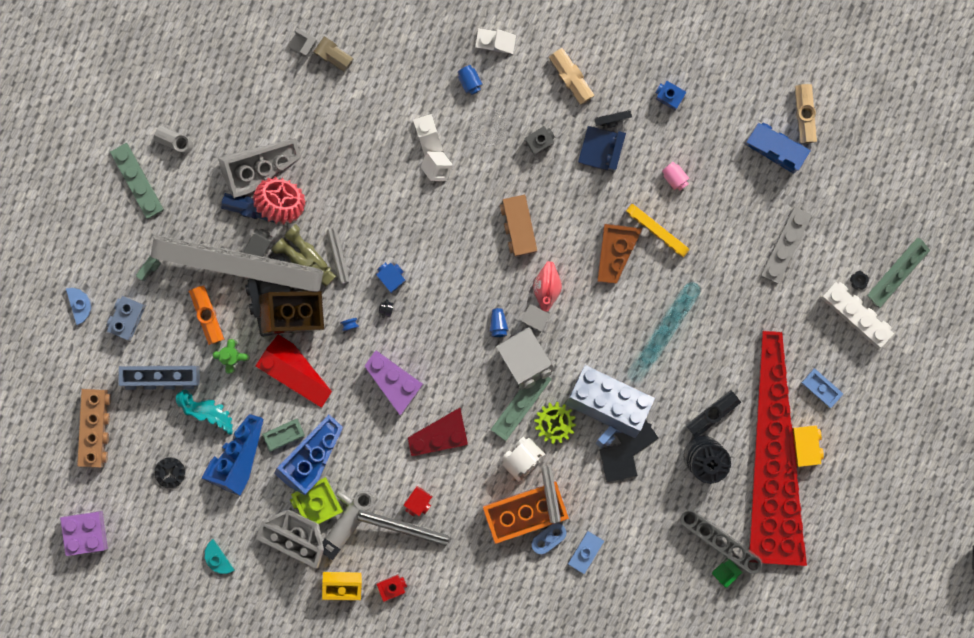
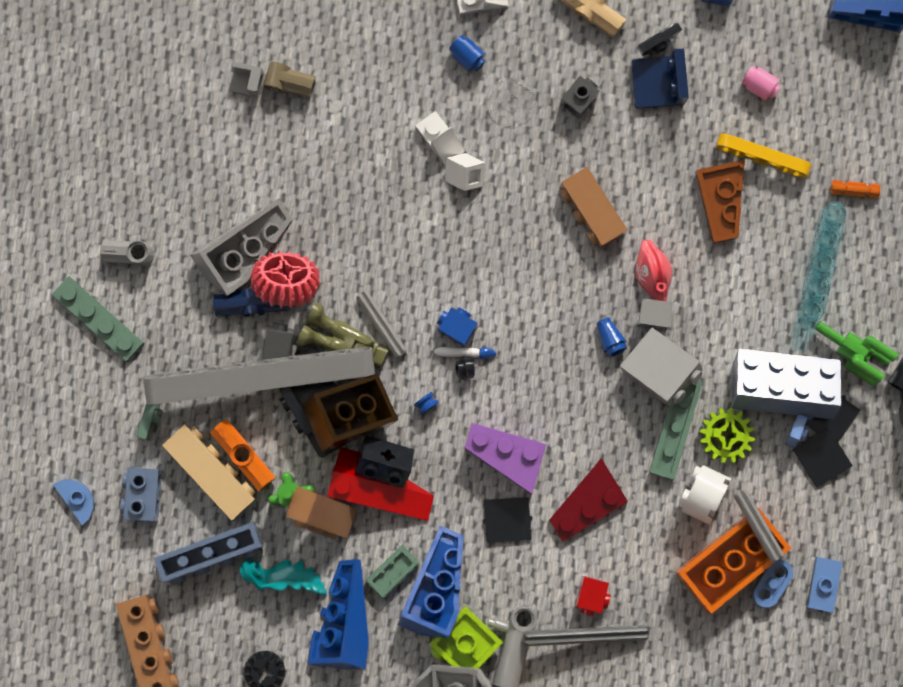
camera: 25 degrees left, 5 degrees down
(179, 321) = (209, 472): none -> tan brick
(246, 377) = (320, 514): none -> medium nougat brick
(304, 355) = (384, 461): none -> black brick
(378, 427) = (507, 519): none -> black piece
(391, 297) = (482, 353): none -> white piece
(671, 396) = (859, 352): none -> bright green plant
(715, 278) = (855, 189): none -> orange axle

